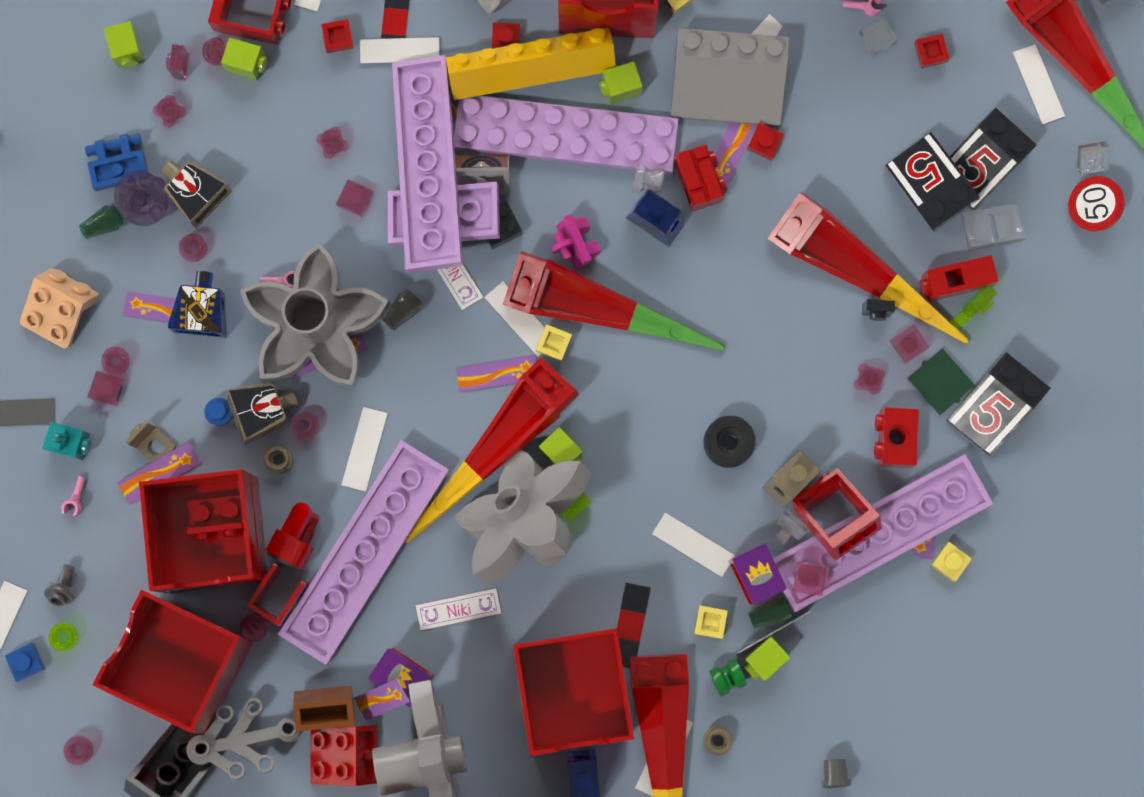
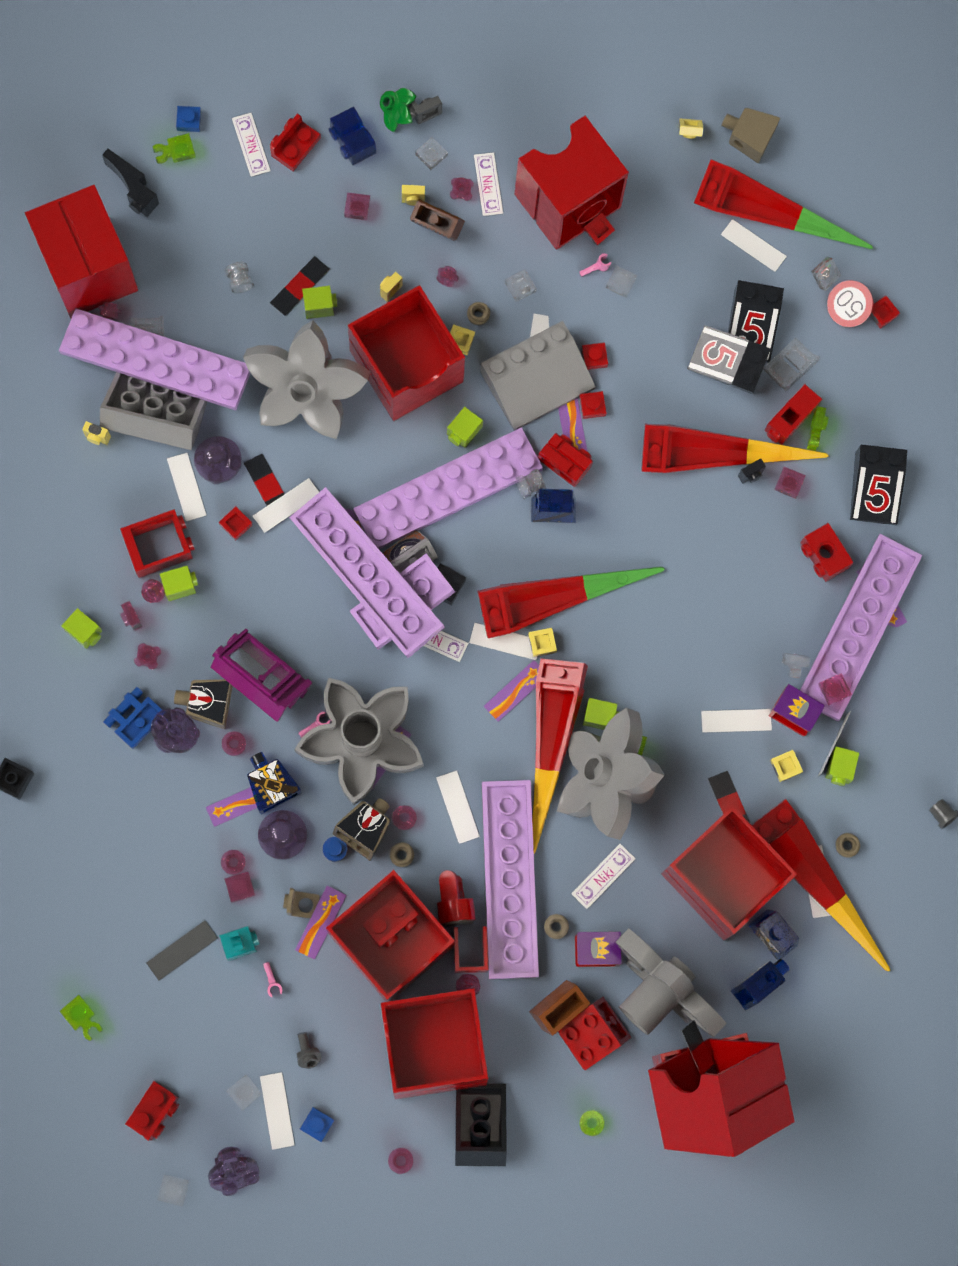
camera: 40 degrees left, 5 degrees down
(54, 636) = (324, 1087): clear neon green plate -> none
(56, 306) = (163, 851): light nougat bracket -> none
(101, 222) = (154, 768): clear green cone -> none
(179, 365) = (282, 834): none -> clear purple plate
(238, 740) = (515, 1073): light grey plant -> none
(257, 195) = (259, 674): none -> magenta door
(324, 140) = (282, 595): clear pink plate -> none
(354, 198) = (327, 632): clear pink plate -> none
(369, 624) = (559, 919): none -> dark tan plate
(381, 699) = (597, 972): medium lavender sticker -> none
(402, 309) = (418, 688): clear smoke cone -> none
(505, 34) = (358, 448): red plate -> none
(531, 63) = (391, 454): yellow brick -> none
(572, 244) = (507, 562): dark pink hips -> none
(722, 681) = (825, 796): green wheel -> none
(745, 441) = (719, 619): black tyre -> none
(771, 613) = (823, 731): clear green cone -> none
(791, 478) = (774, 626): dark tan torso -> none
(800, 94) = (595, 355): none -> red plate
(852, 534) = (843, 639): red window -> none
(876, 375) = (781, 518): clear pink plate -> none
(931, 51) = (665, 268): red plate -> none
(941, 381) = (828, 495): clear green piece -> none
(951, 561) = (920, 614): light yellow plate -> none
(1125, 234) = (884, 312): none -> red plate

